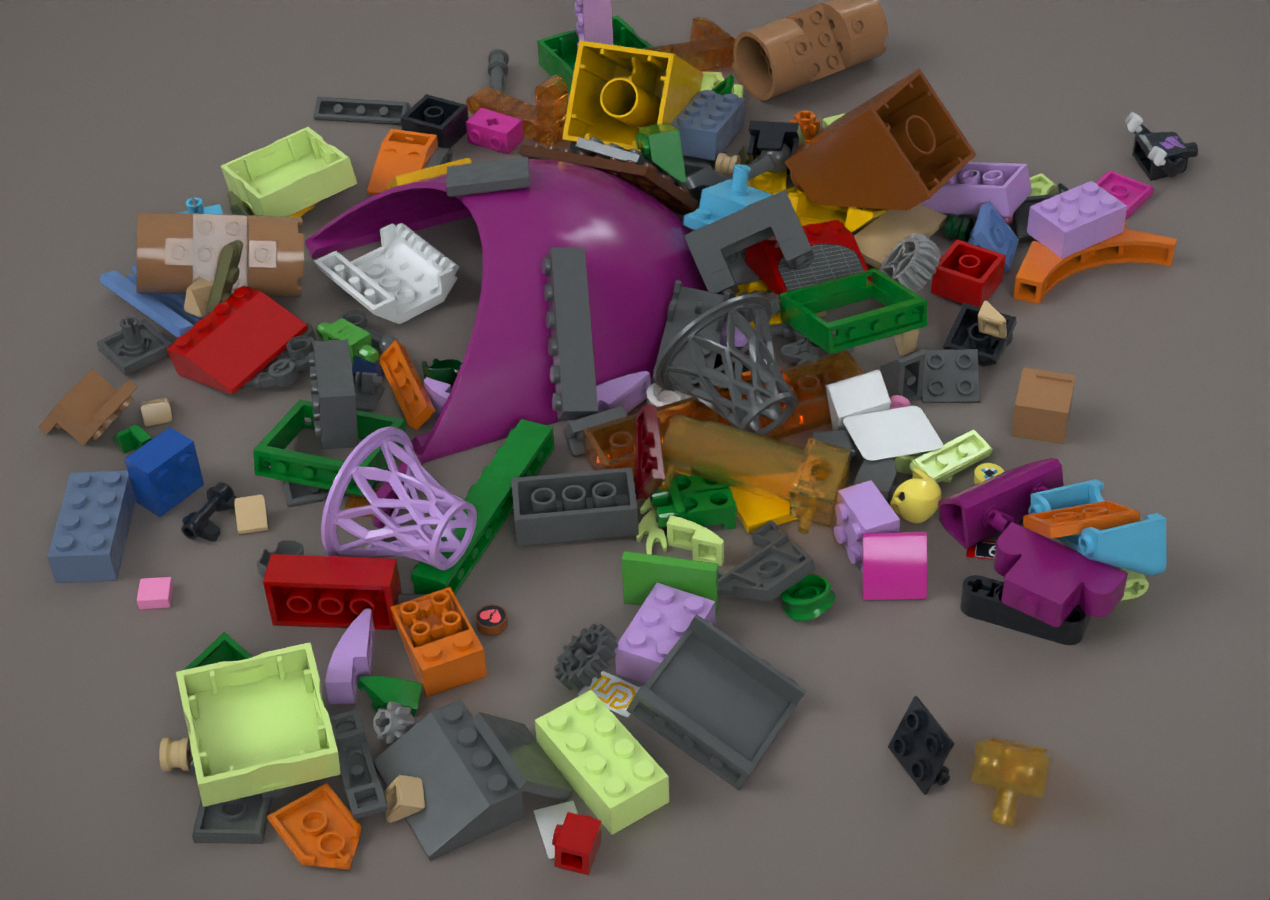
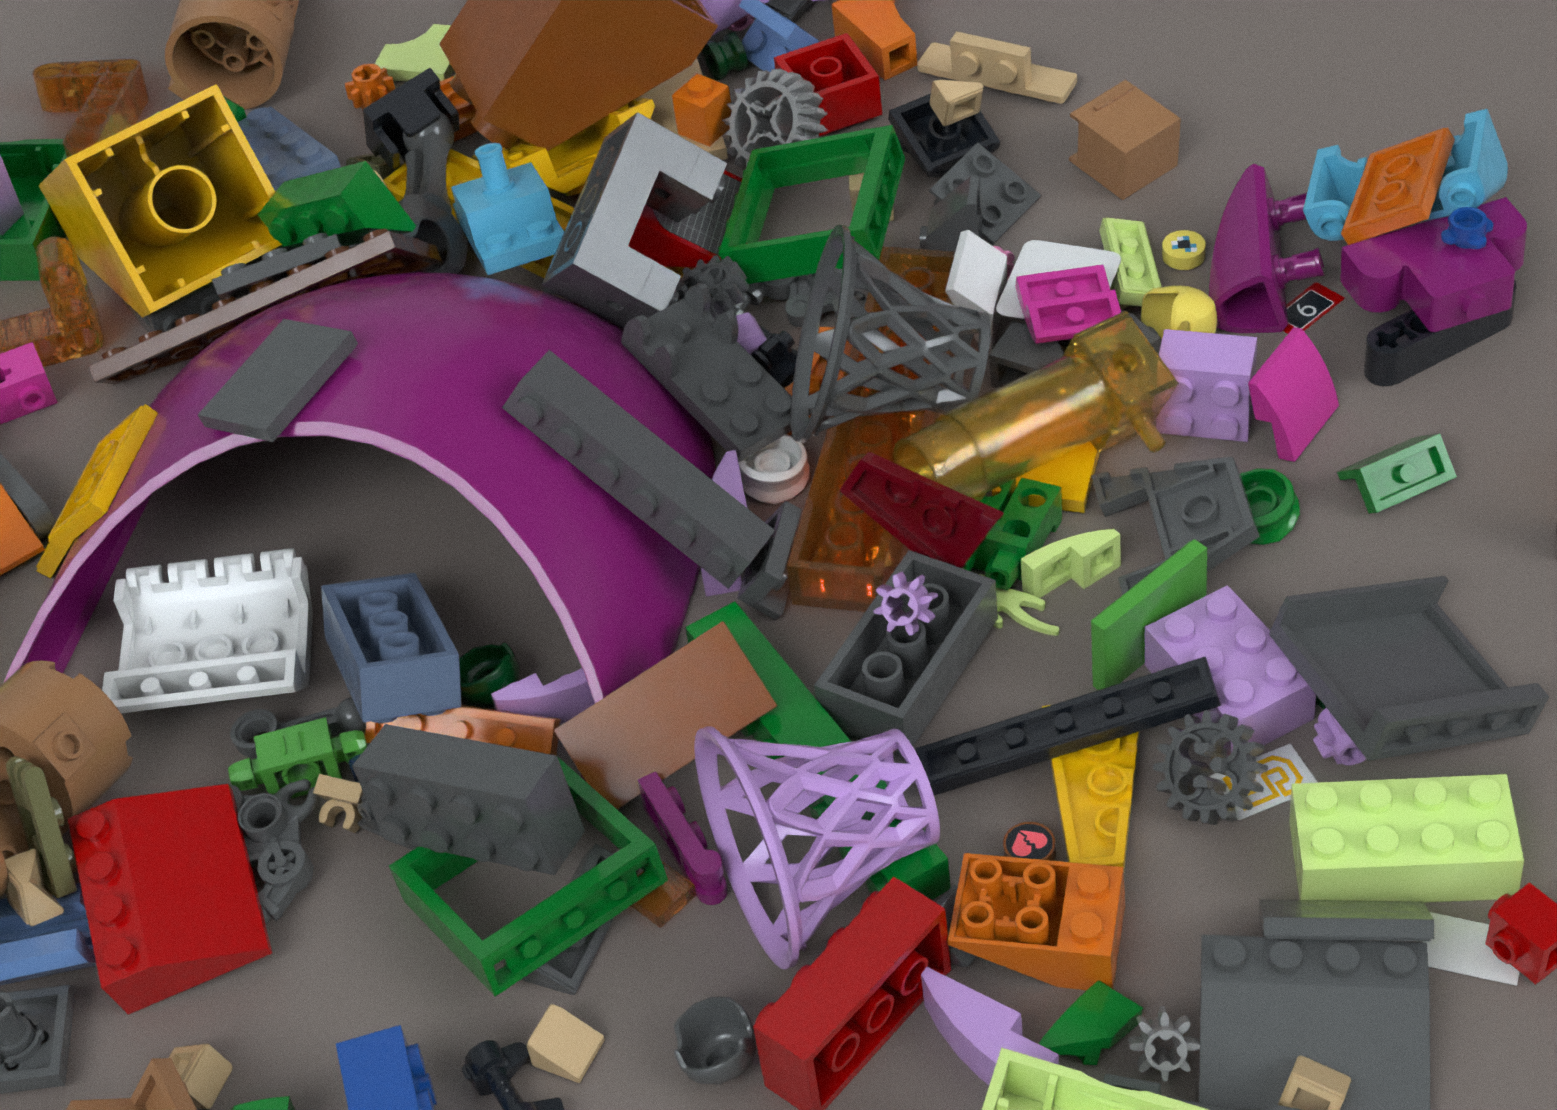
camera: 50 degrees left, 5 degrees up
(419, 326) = (391, 648): none -> sand blue brick
(456, 438) = (657, 714): none -> dark orange tile
(552, 621) = (1096, 800): none -> yellow wing
(571, 589) = (1069, 726): none -> black tile
(579, 477) = (918, 602): none -> lavender gear
(871, 440) = (1065, 301): none -> dark pink slope
(886, 644) = (1401, 472): none -> panel
(890, 232) = (701, 108): none -> orange brick
(1059, 334) = (996, 66): none -> tan bracket
(1071, 564) = (1467, 228): none -> blue plate

